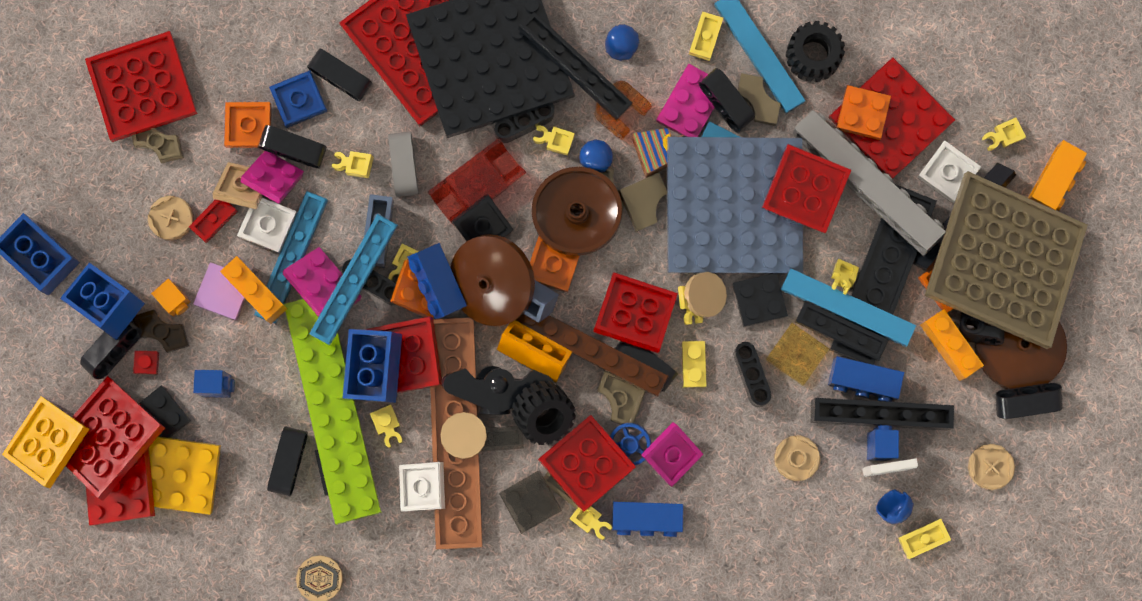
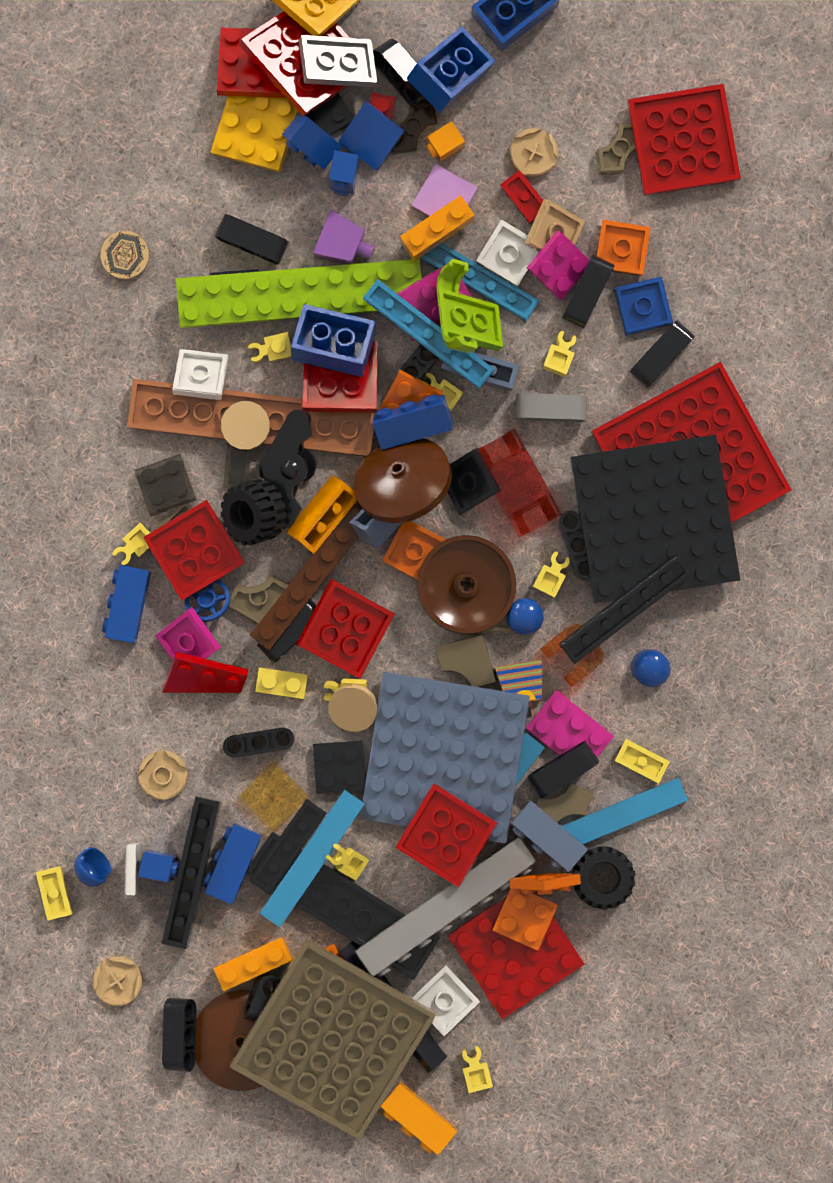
camera: 100 degrees right, 5 degrees up
(107, 406) = (337, 61): none -> plate
(174, 366) = (371, 135): none -> blue tile
(186, 418) = (311, 140): none -> blue brick
(277, 376) = (341, 241): none -> medium lavender torso
(334, 247) = (464, 319): none -> lime piece
(700, 435) = (202, 675): none -> red wing
(789, 103) = (548, 837): none -> sand blue brick
(831, 96) = (545, 882): none -> orange plate

